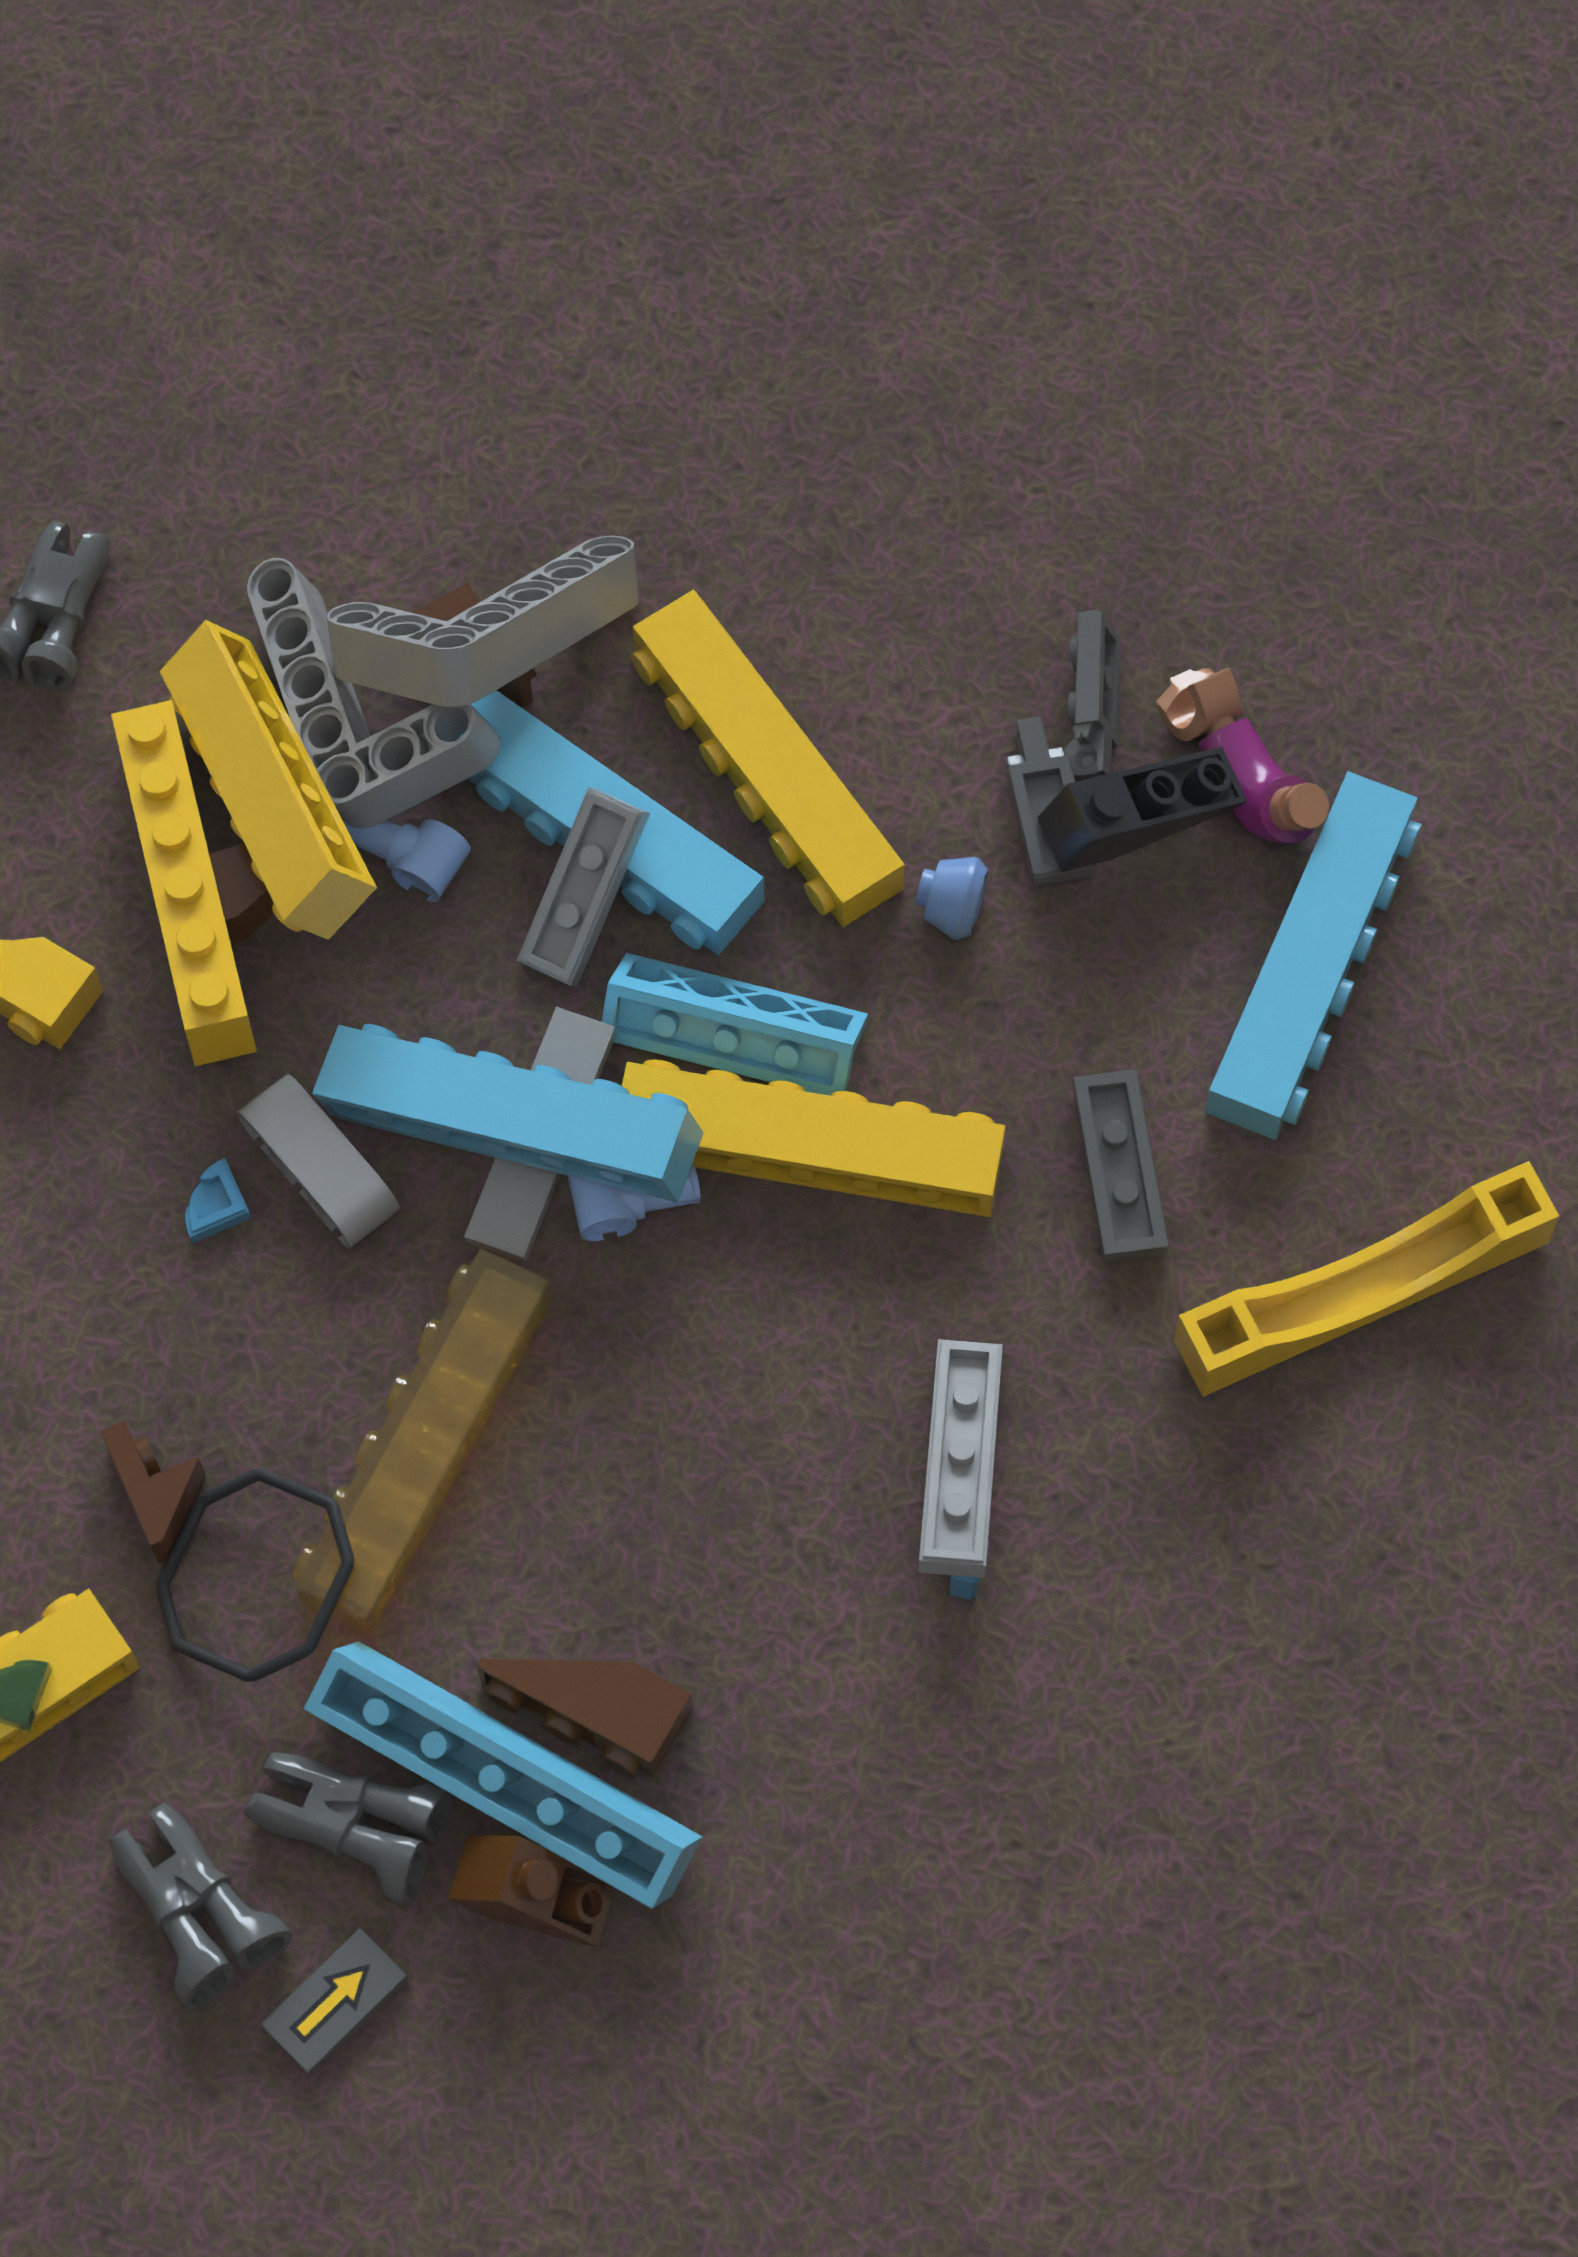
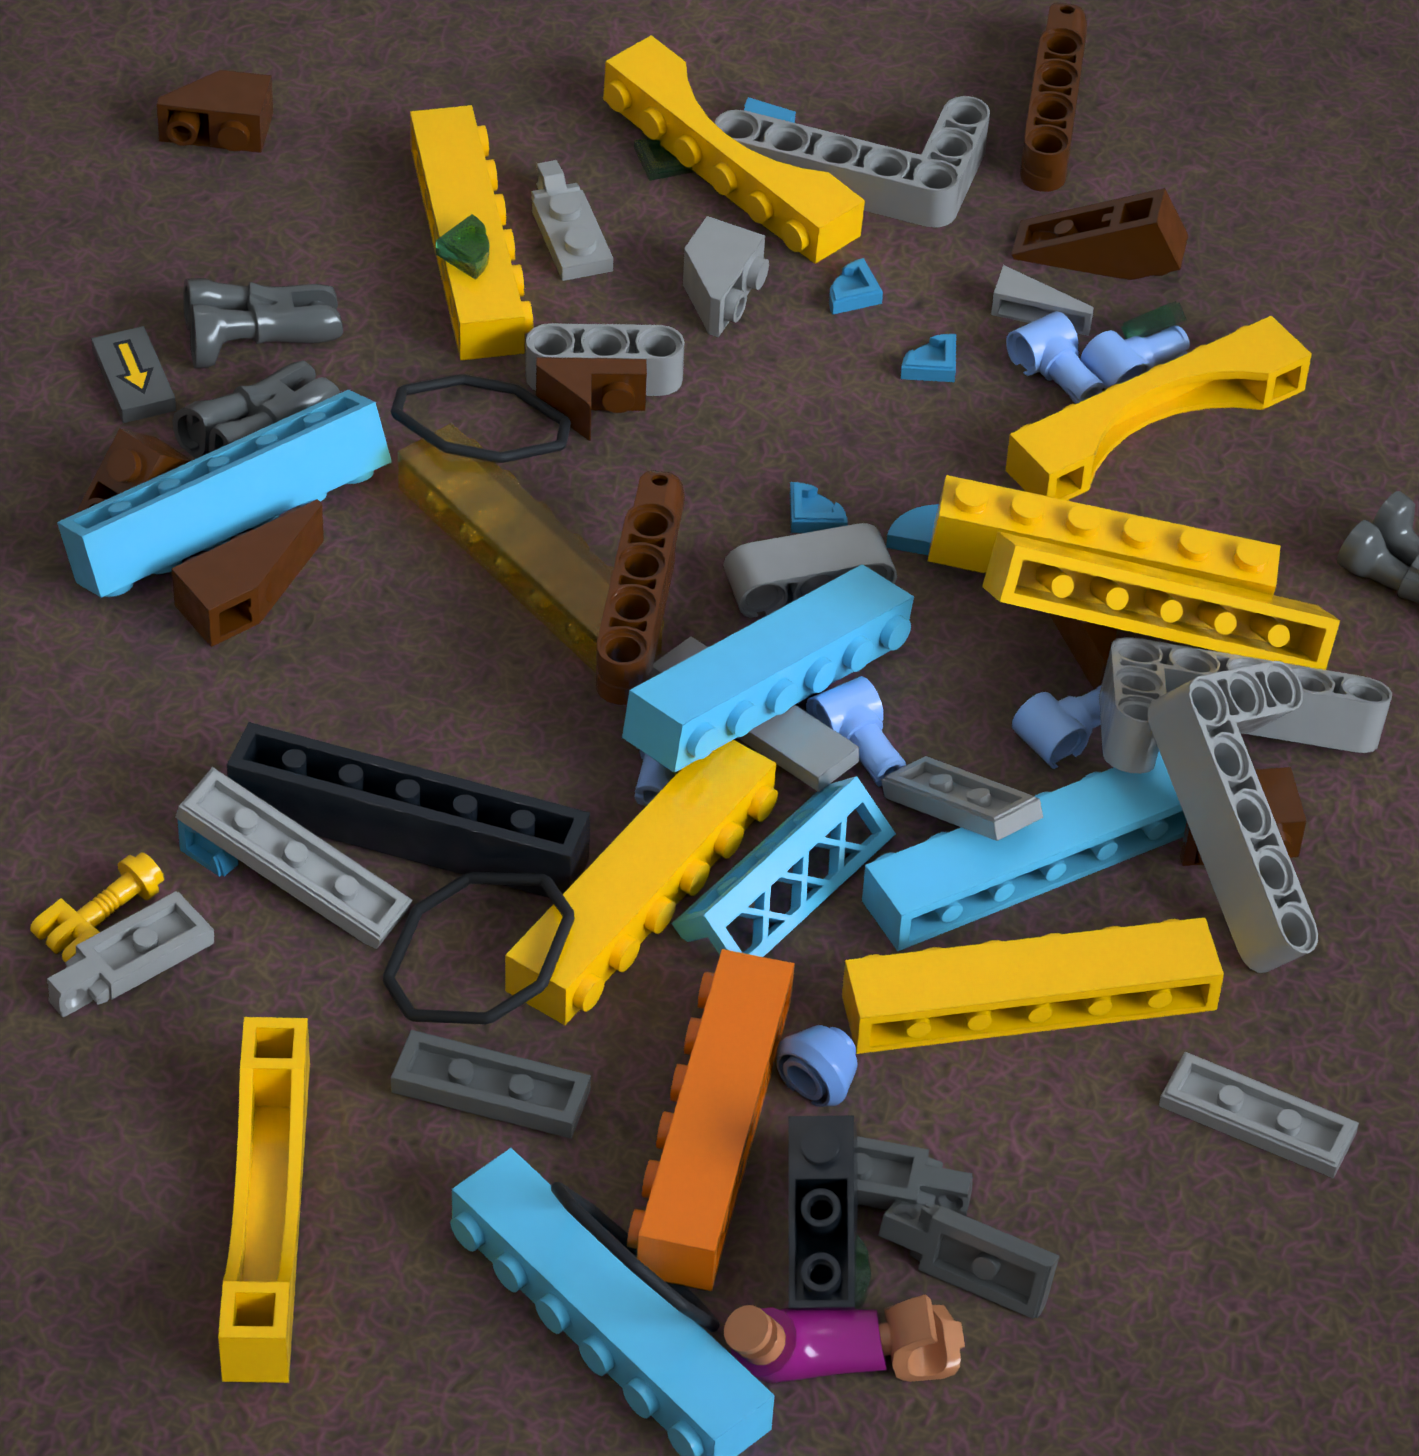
camera: 110 degrees right, 20 degrees down
(88, 1467) = (657, 344): none -> light grey beam
(195, 1088) = (913, 530): none -> dark azure tile
(504, 1274) = (639, 587): none -> reddish brown piece
(516, 1029) = (858, 715): none -> light blue pin
(805, 539) = (1259, 1114): none -> light grey tile
(853, 1377) = (411, 809): none -> black brick
(889, 1252) = (509, 1004): none -> black piece
(1065, 952) = (714, 1119): none -> orange brick
(1128, 1634) = (69, 928): none -> yellow hinge
(1140, 1559) = (130, 954): none -> light grey hinge
(1348, 868) = (615, 1240): none -> black piece

